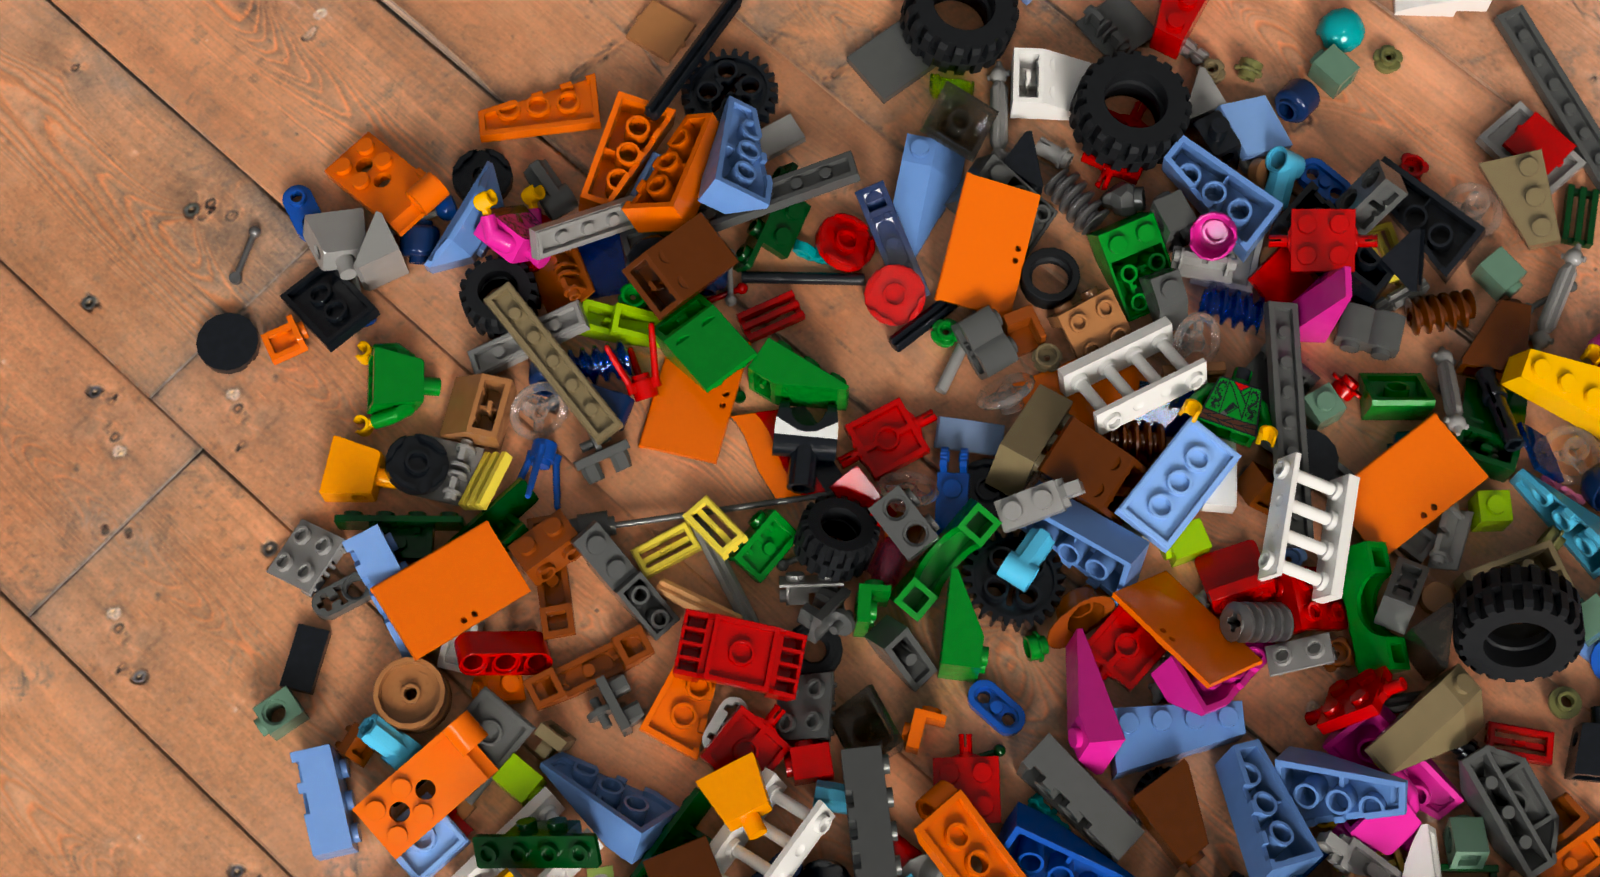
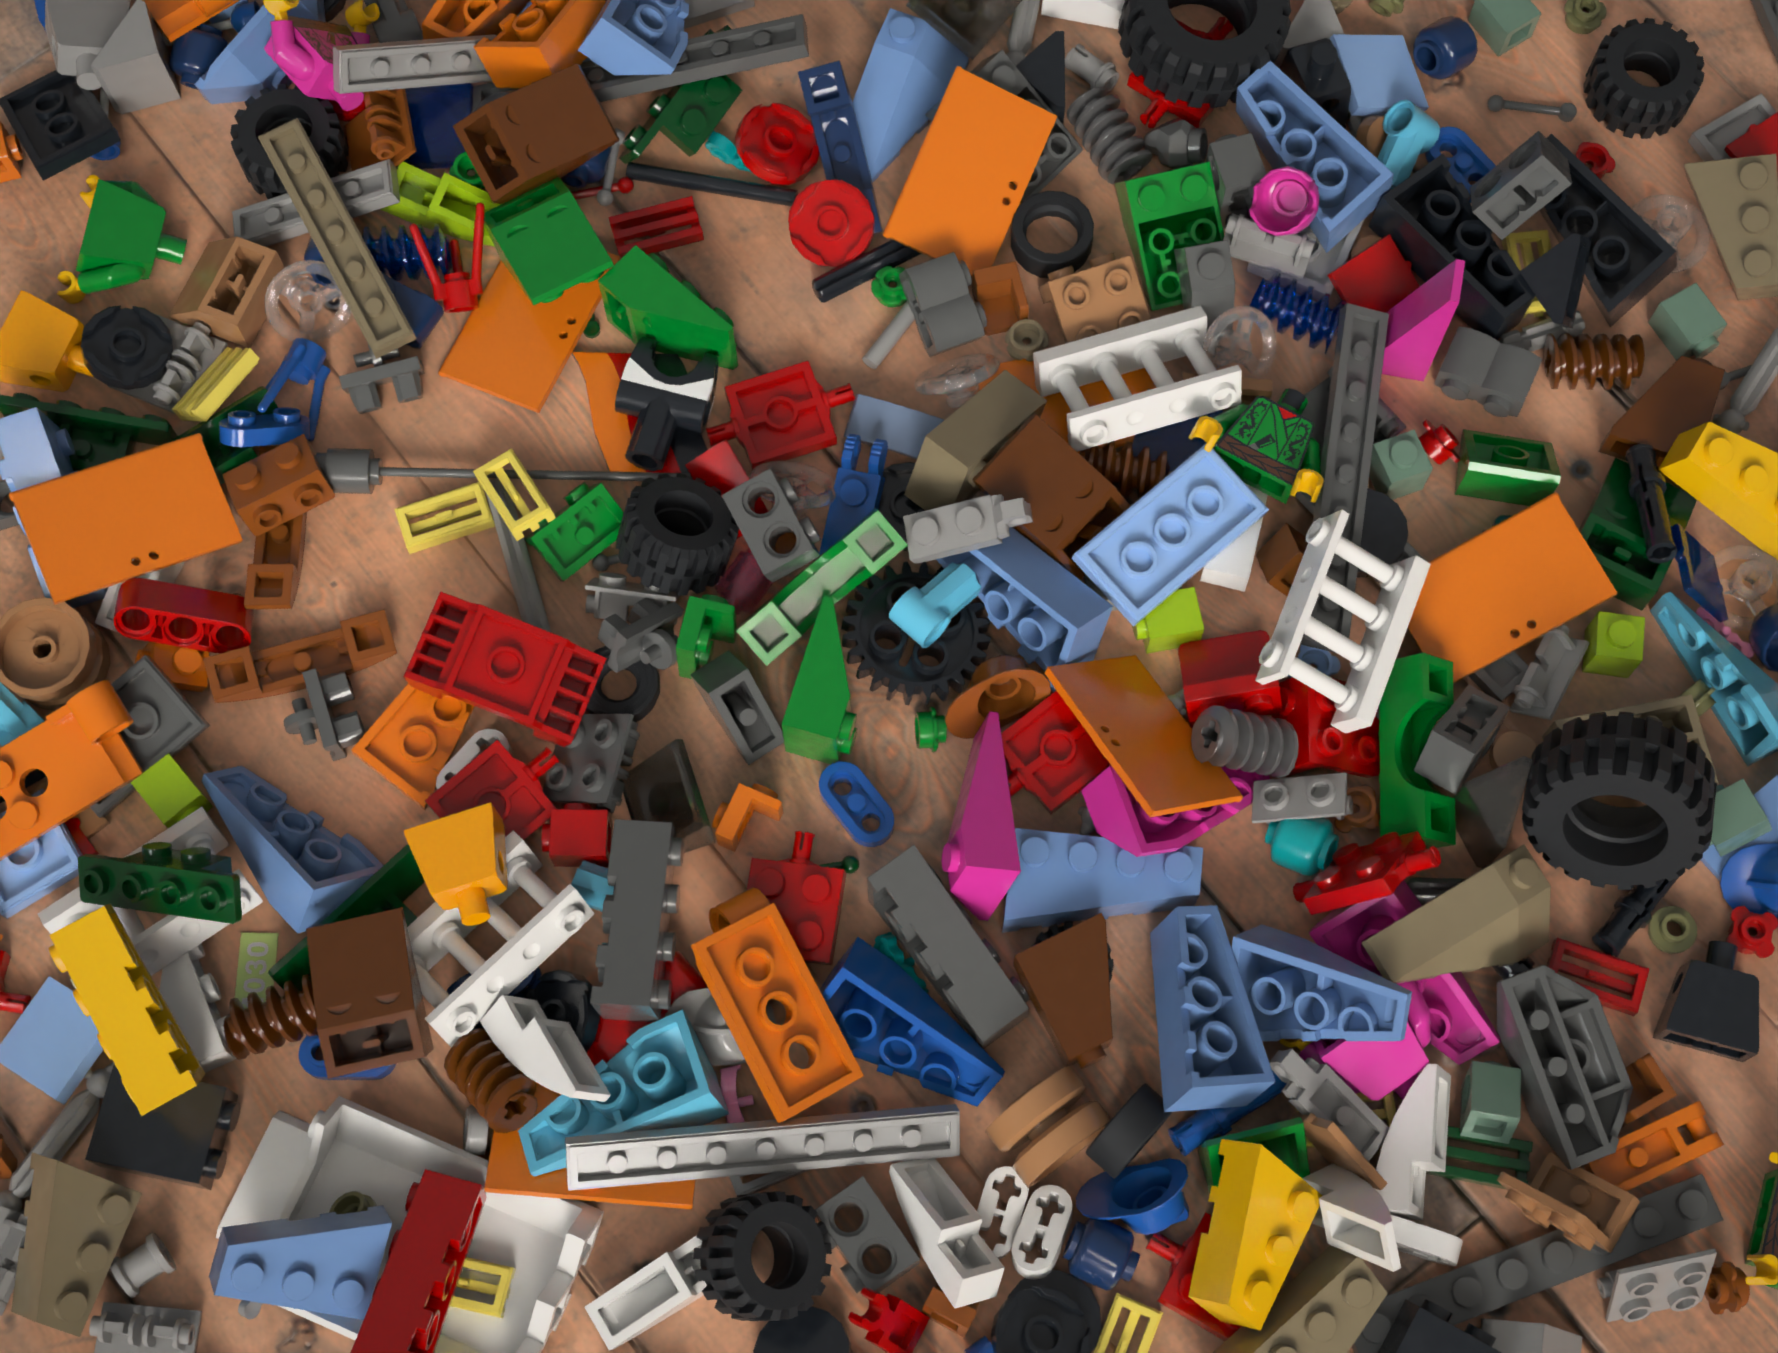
camera: 10 degrees right, 0 degrees up
(523, 510) = (249, 430): none -> blue plate
(553, 739) = (230, 745): dark tan tile -> none
(624, 580) = (373, 544): dark grey slope -> none
(691, 600) = (456, 584): light nougat axle -> none
(1306, 686) = (1302, 844): none -> teal head
(1322, 240) = (1436, 228): red plate -> none
(1387, 133) = (1565, 112): none -> dark grey hinge
(1450, 85) = (1651, 50): none -> black tyre
(1450, 391) = (1585, 469): light grey wheel -> none
(1534, 698) = (1629, 915): none -> black pin

